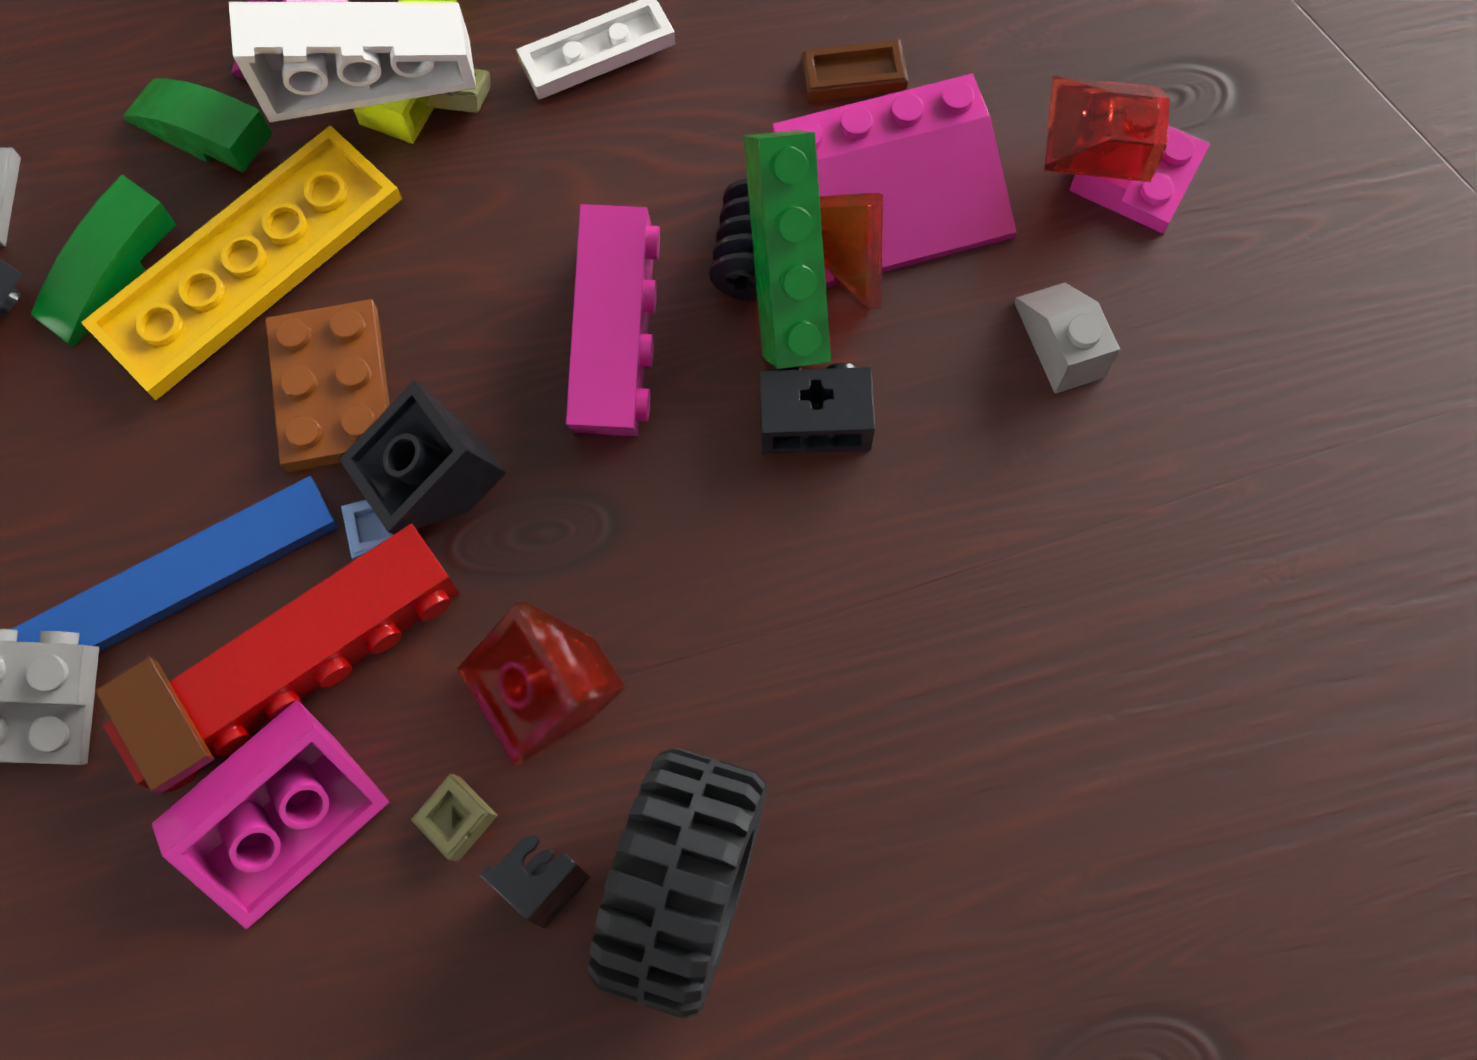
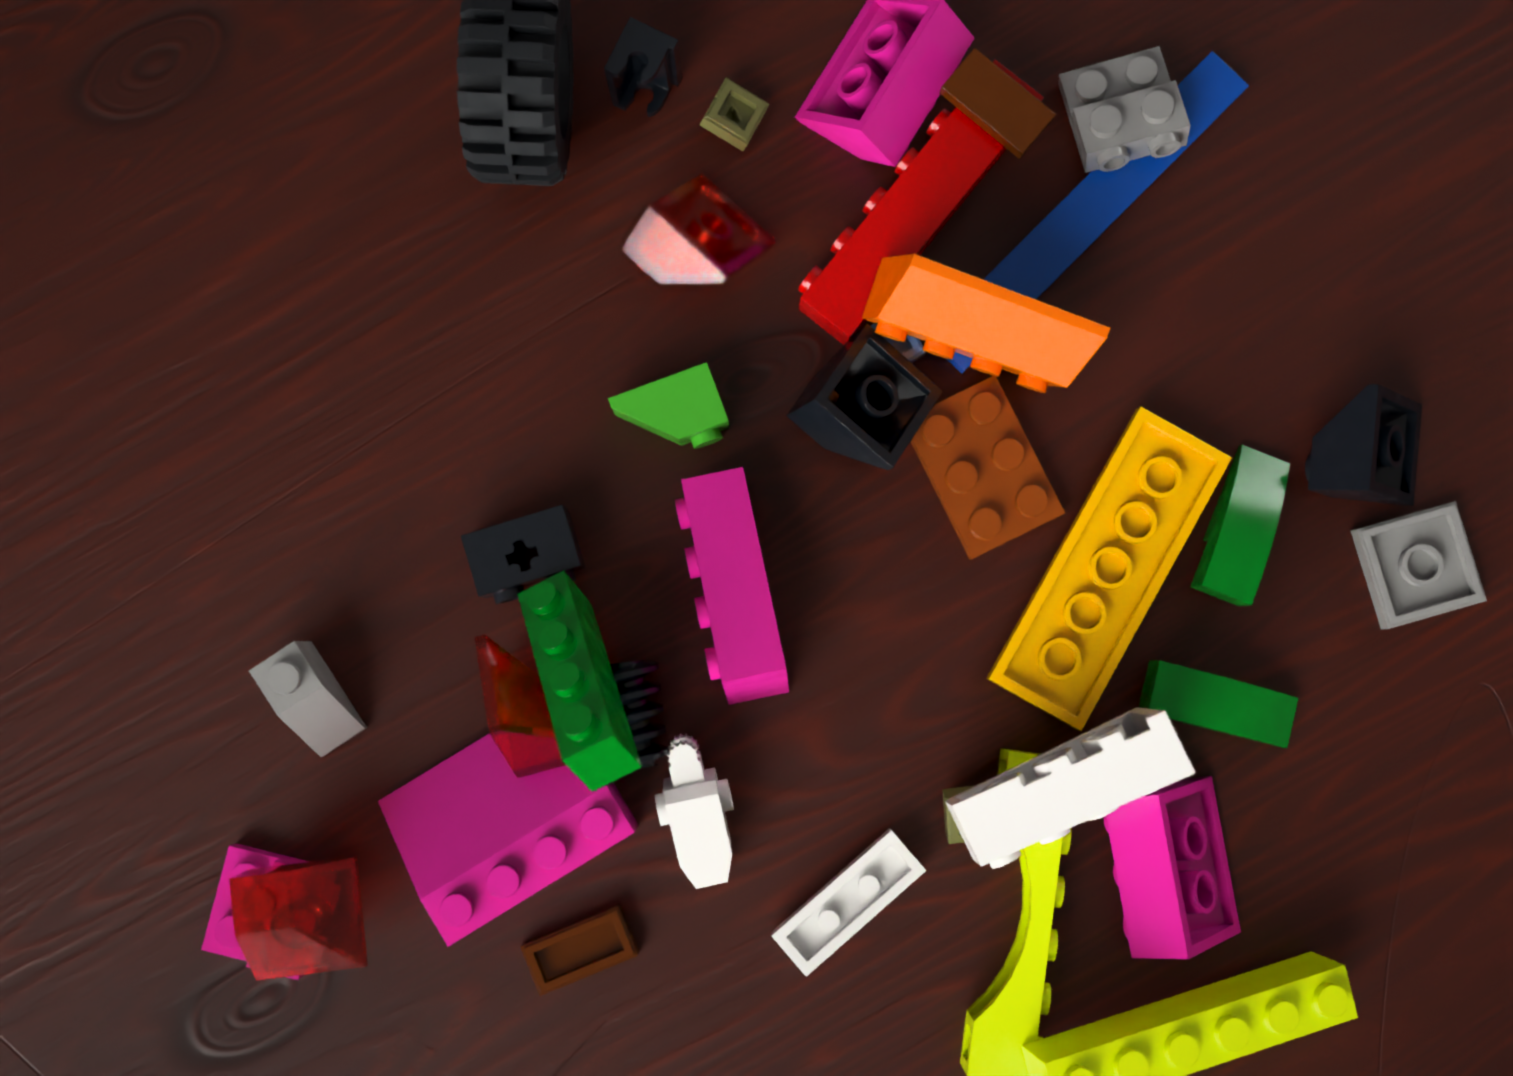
camera: 160 degrees right, 15 degrees up
(270, 496) = (980, 322): none -> orange slope
(618, 512) = (676, 407): none -> bright green slope
(710, 142) = (695, 809): none -> white hinge

